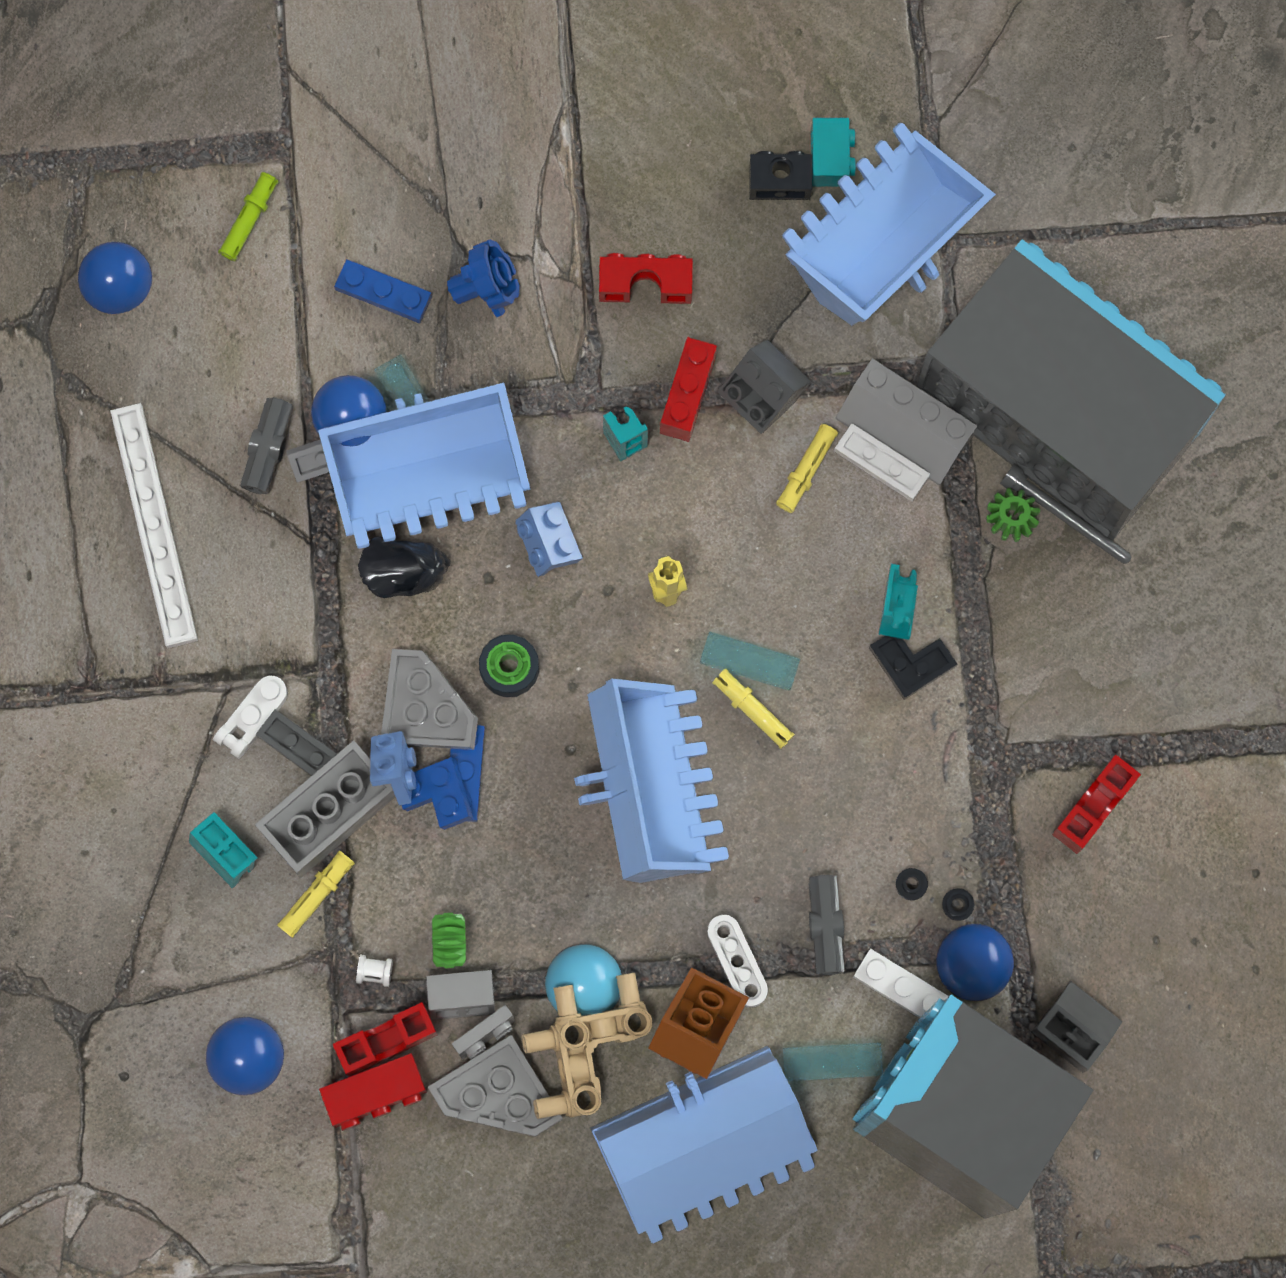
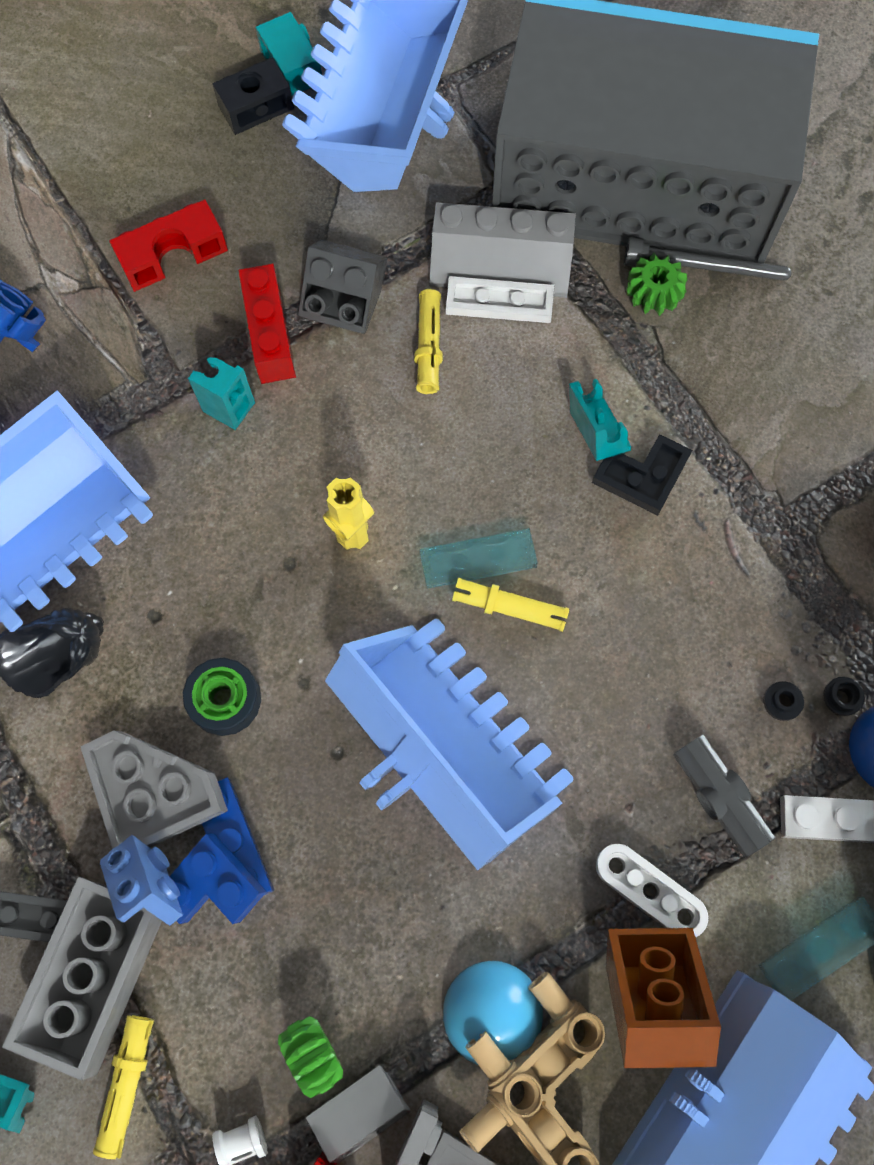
camera: 25 degrees left, 5 degrees down
(548, 538) = (196, 541): medium blue bracket -> none

